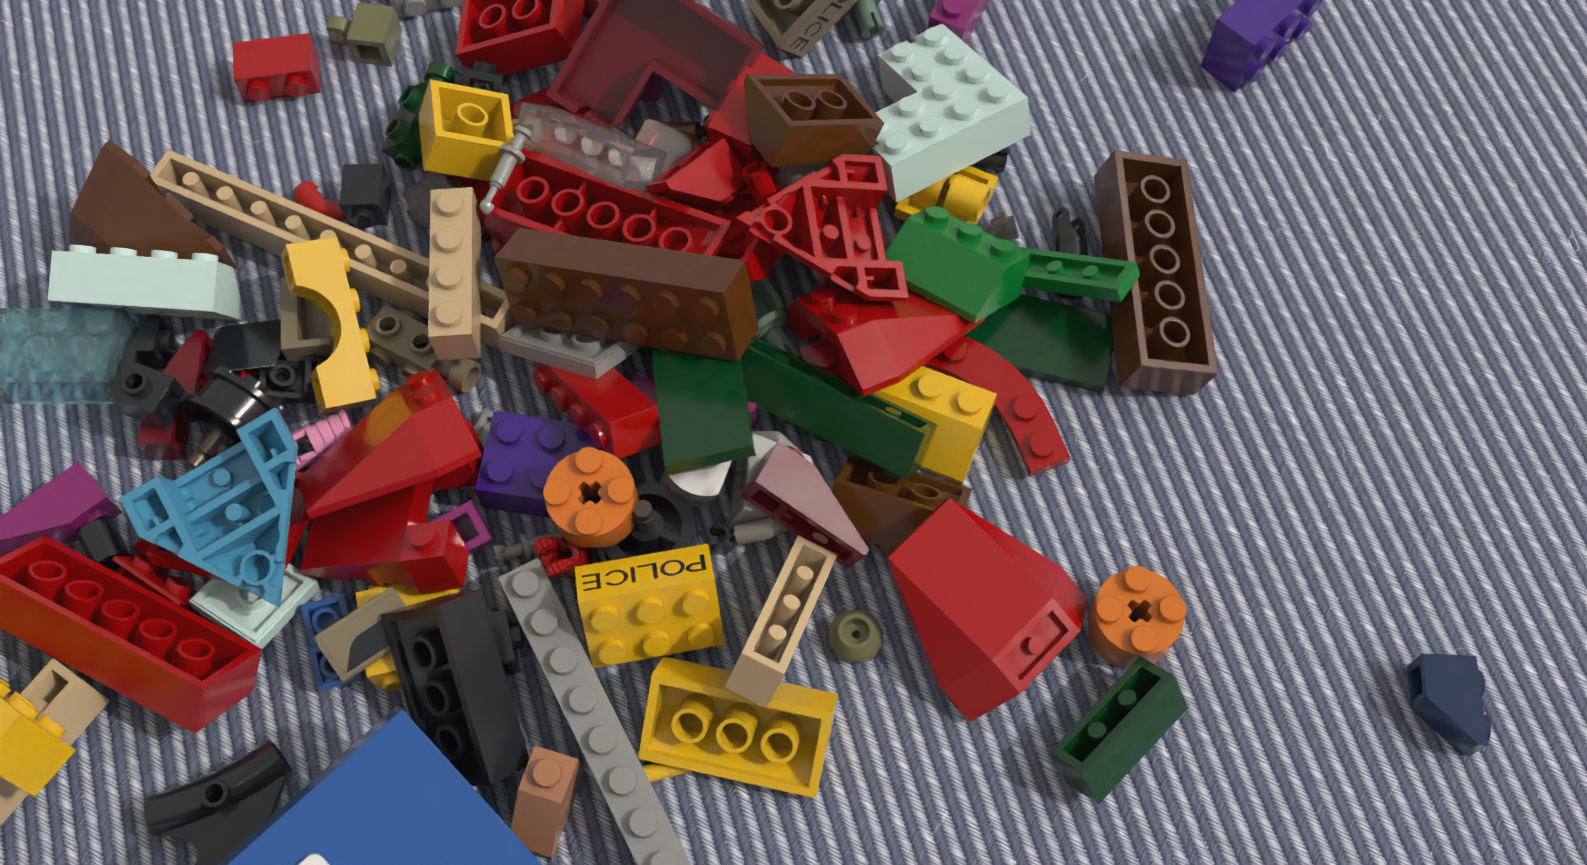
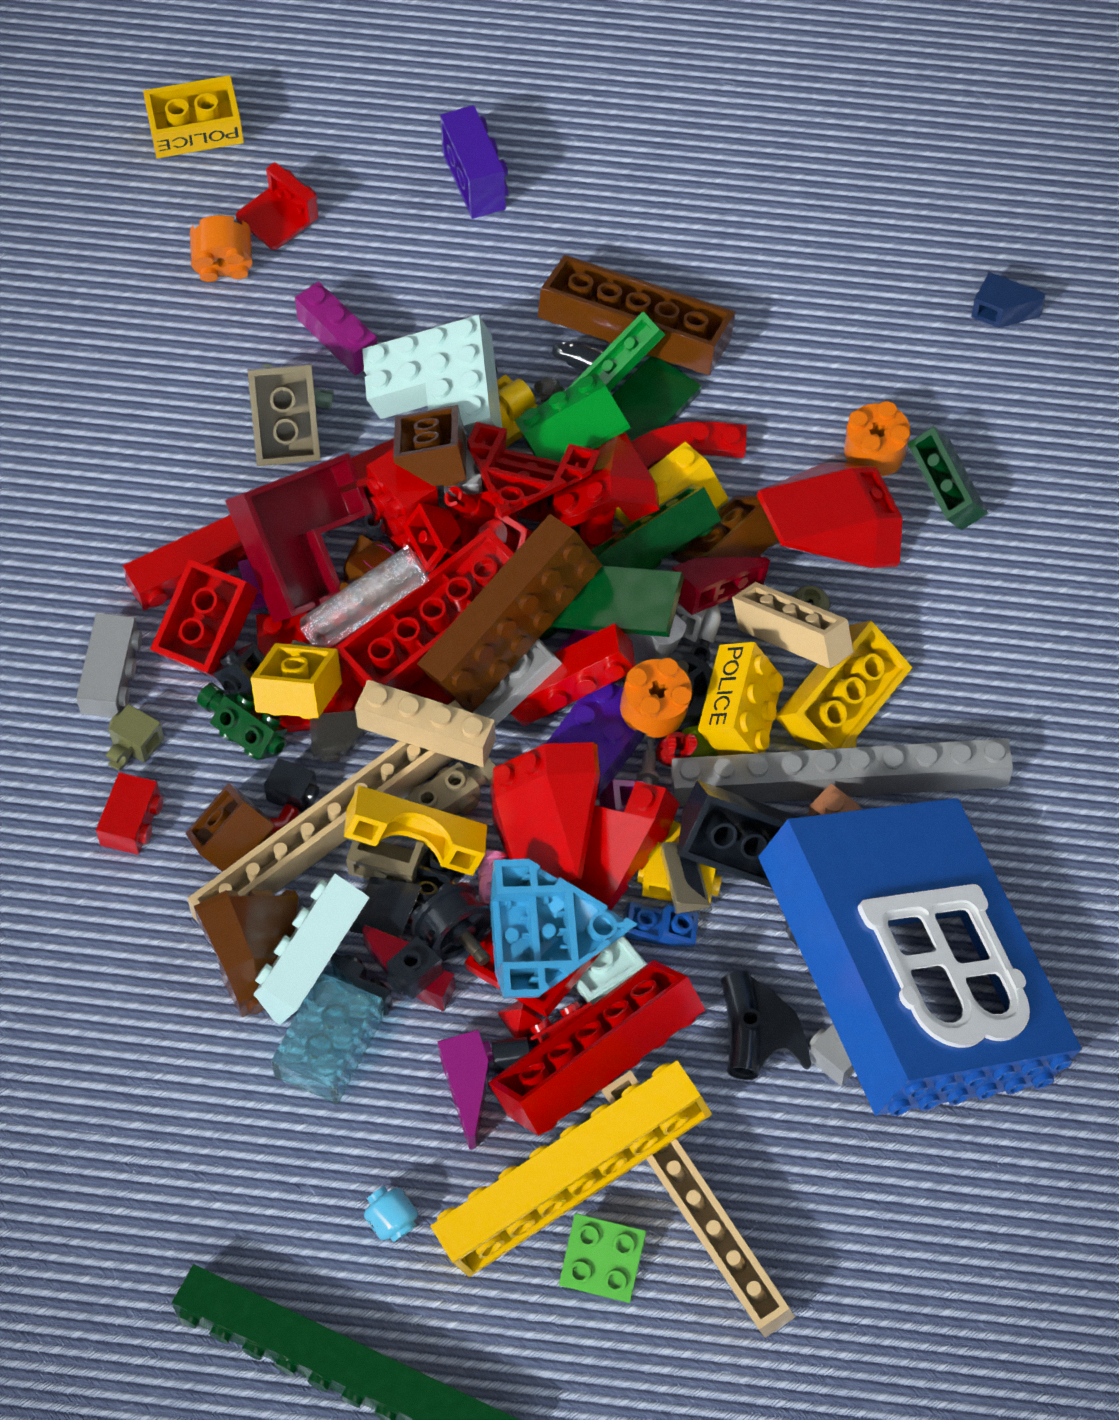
camera: 65 degrees left, 5 degrees down
(280, 158) = (229, 828): none -> reddish brown slope
(510, 156) = (349, 651): light grey piece -> none

